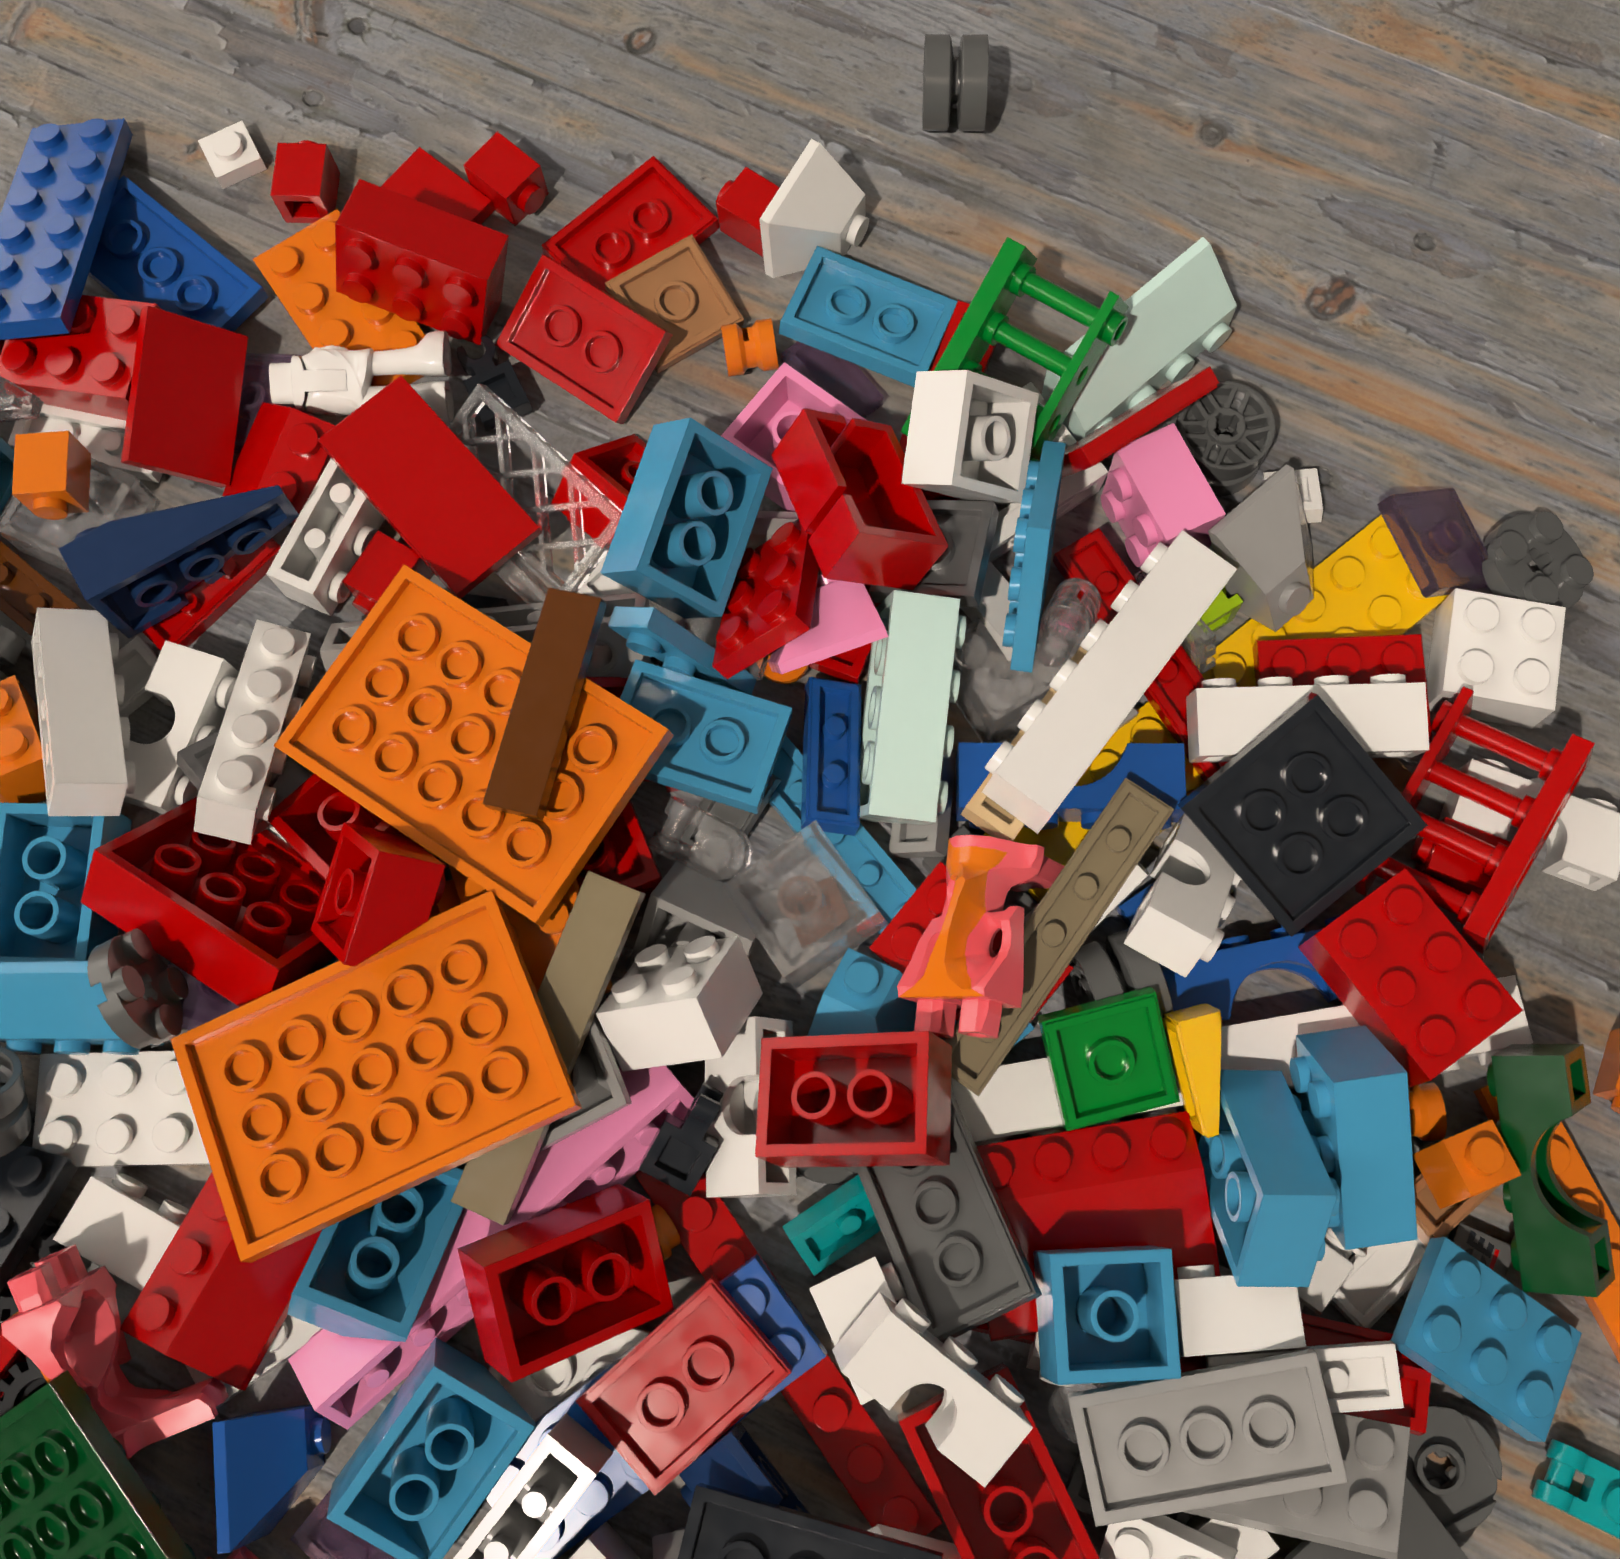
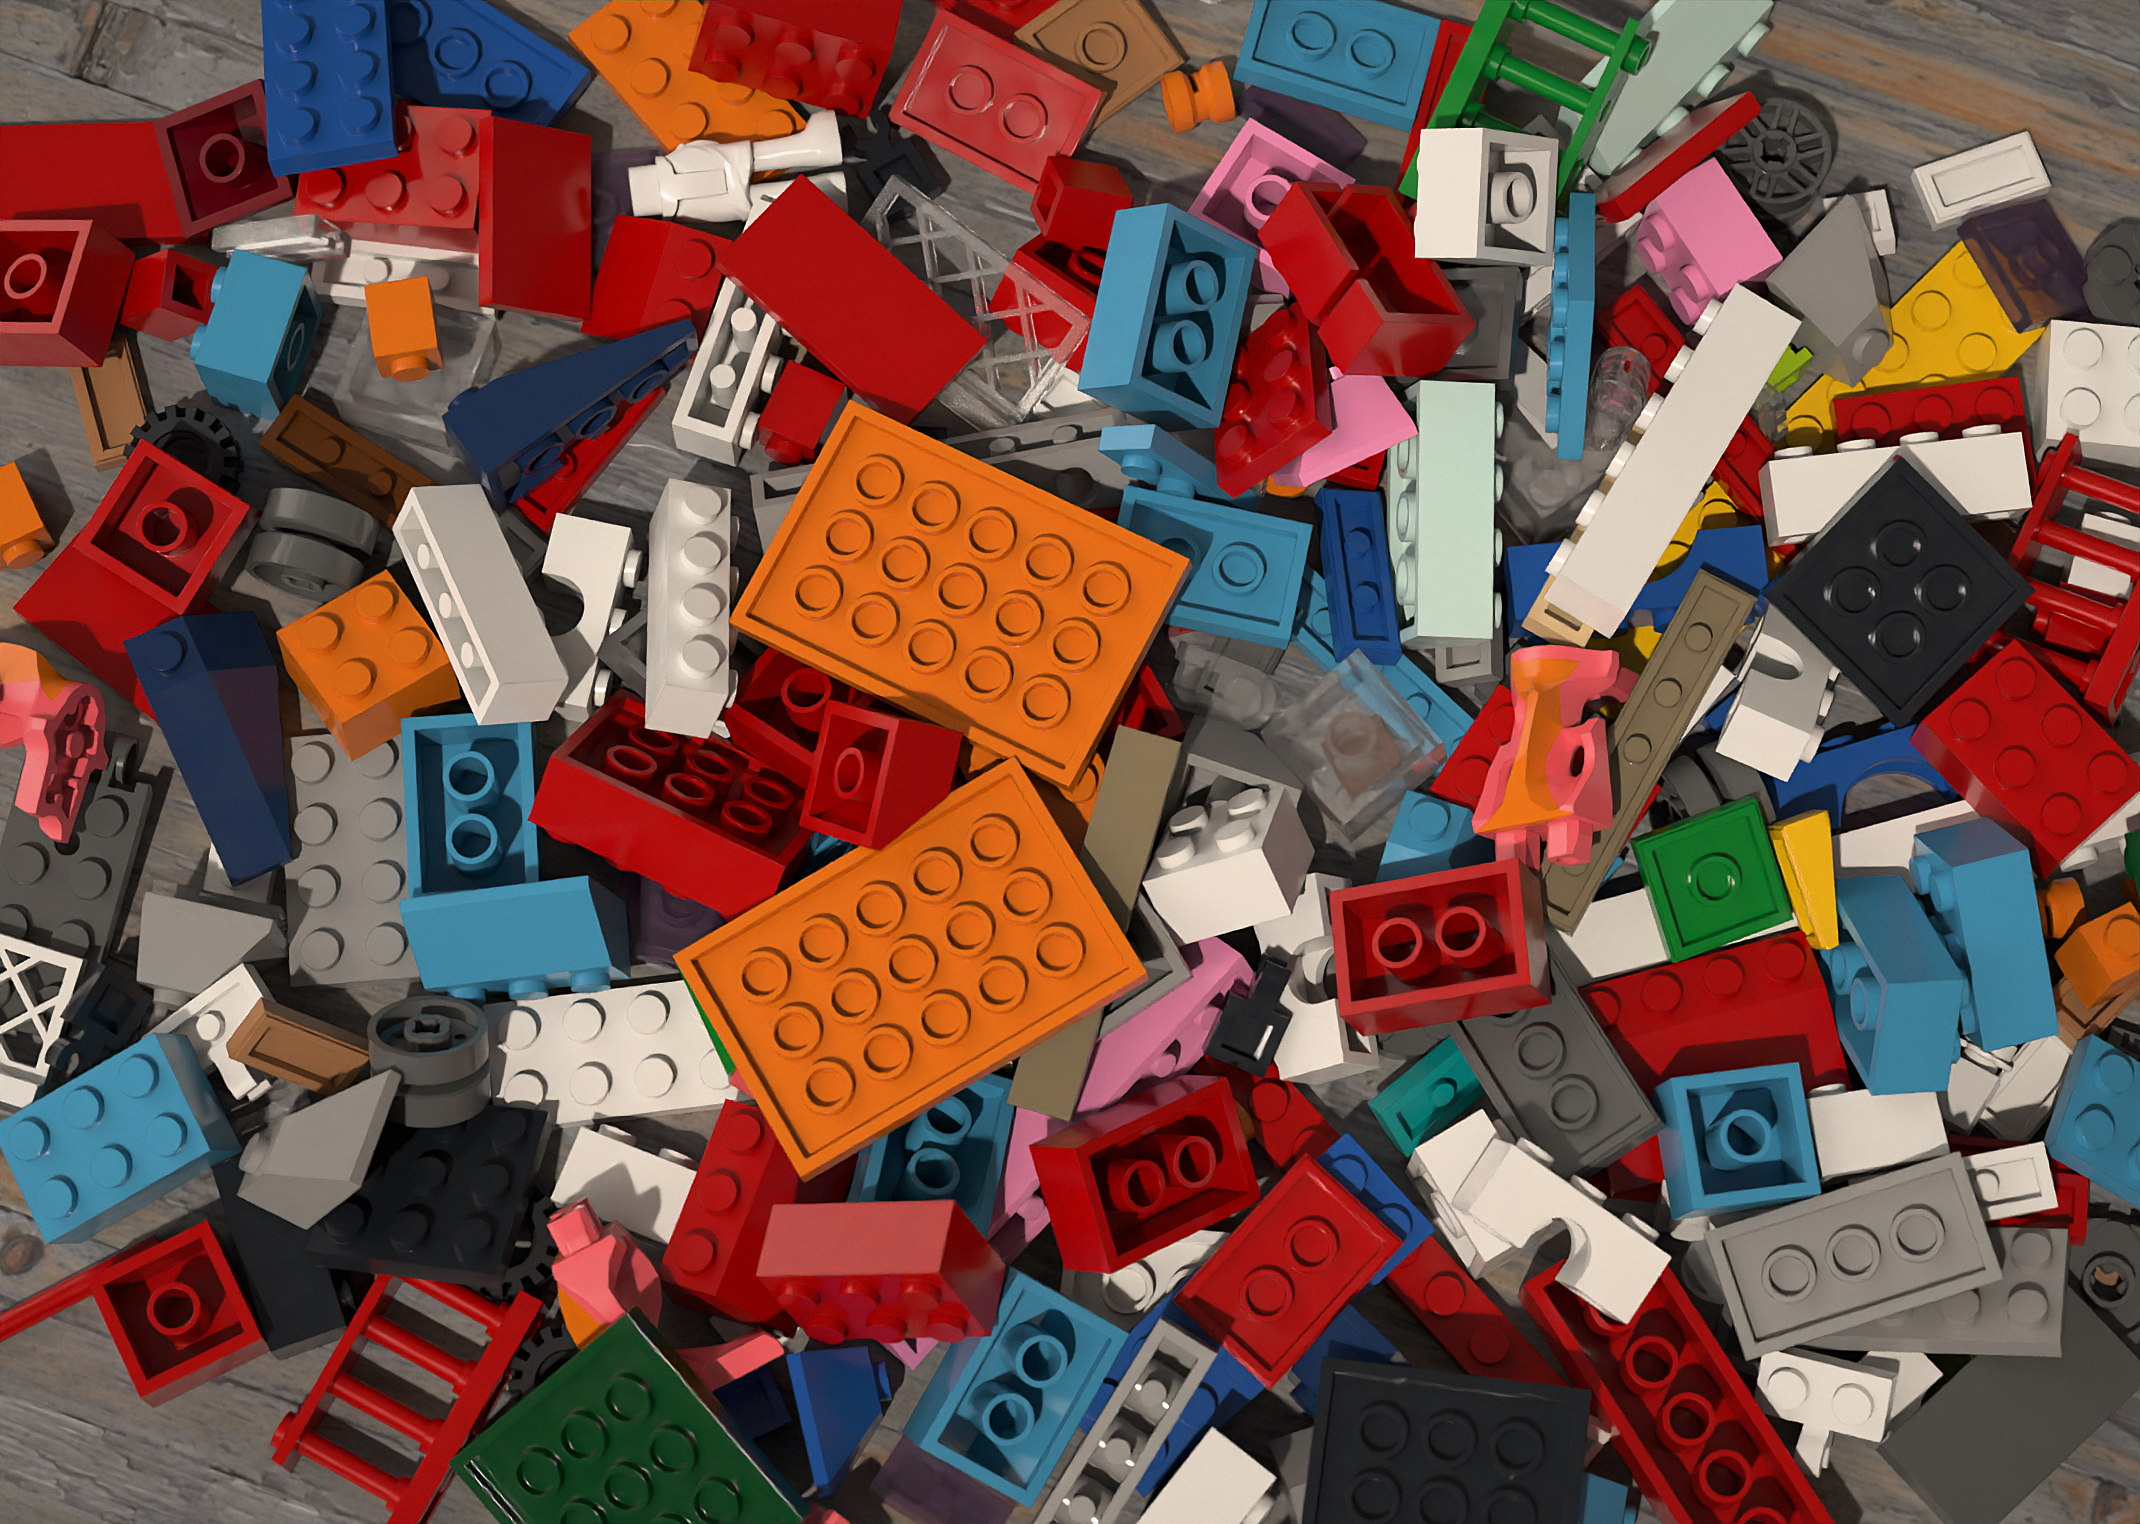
camera: 15 degrees left, 0 degrees up
(139, 990) = (633, 909): dark grey plate -> none
(193, 1449) = (755, 1403): none -> blue plate
(306, 1356) = (882, 1271): none -> red brick
(545, 704) = (1046, 543): reddish brown tile -> none
(631, 417) = (1079, 201): none -> red brick
(1398, 468) = (1980, 181): none -> white tile

